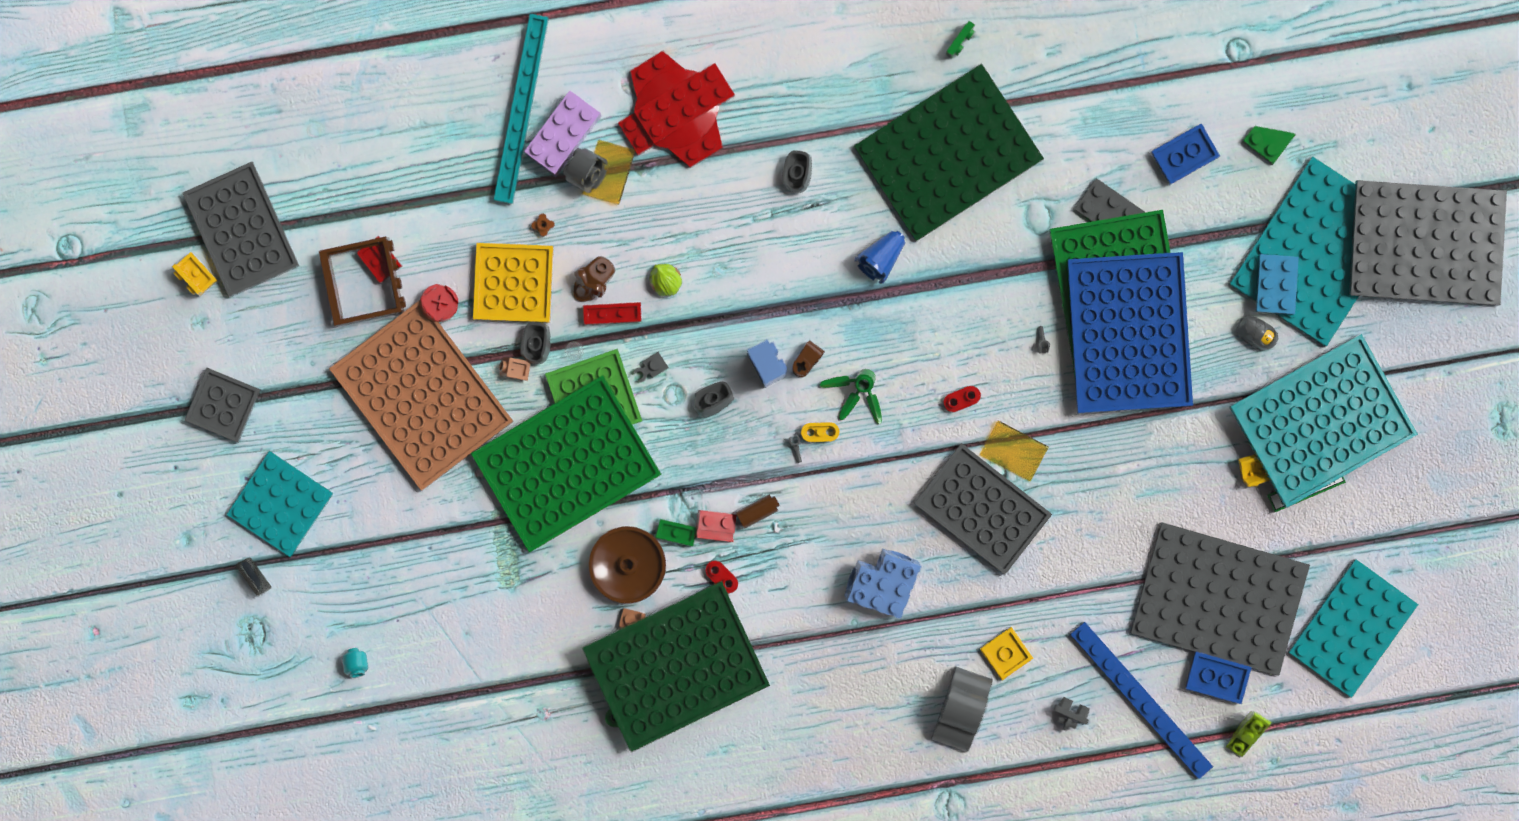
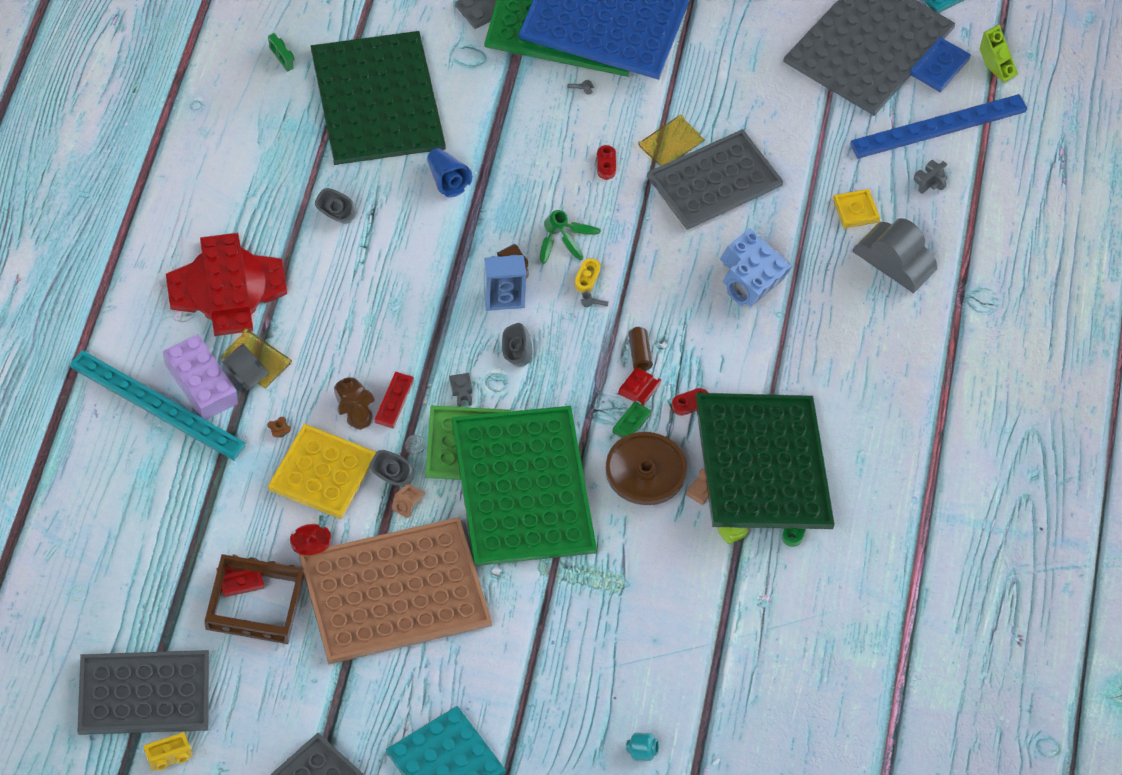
camera: 70 degrees left, 30 degrees down
(665, 279) = (383, 346): lime hair -> none

